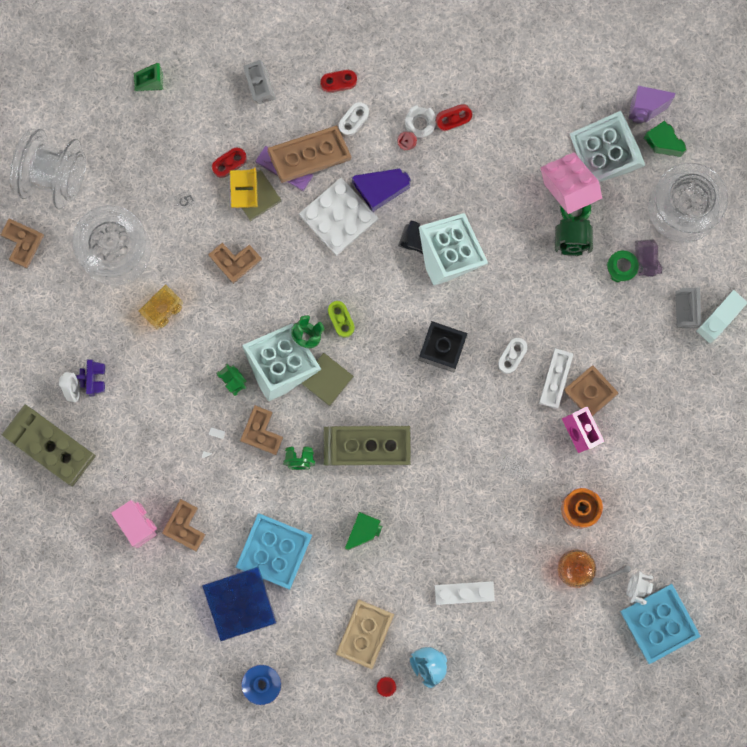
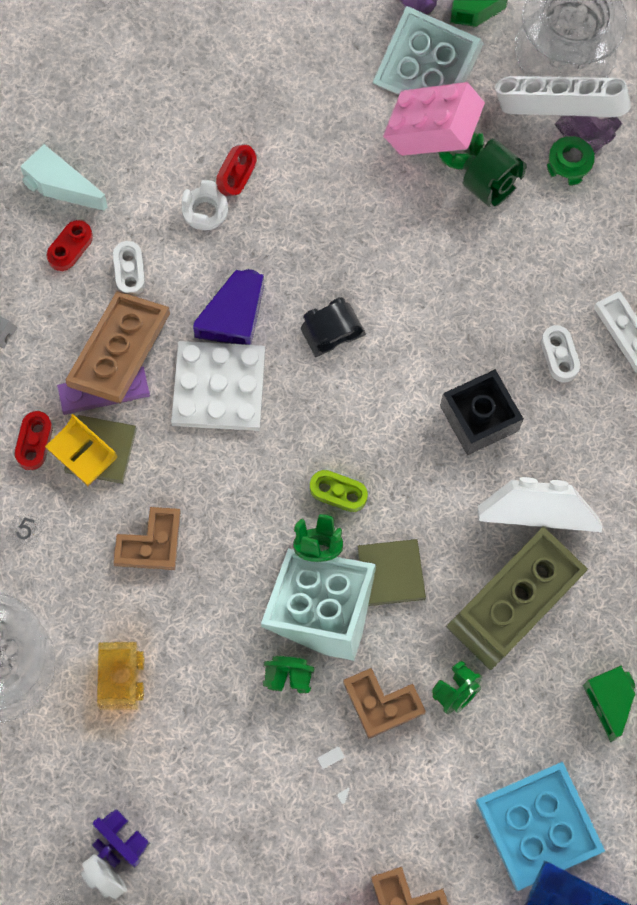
camera: 45 degrees left, 10 degrees down
(364, 42) = (59, 180): none -> light aqua slope
(407, 140) = (210, 238): tile -> none
(420, 416) = (539, 505): none -> white wedge
(450, 249) = (377, 306): light aqua slope -> none
(648, 231) = (563, 96): none -> white beam

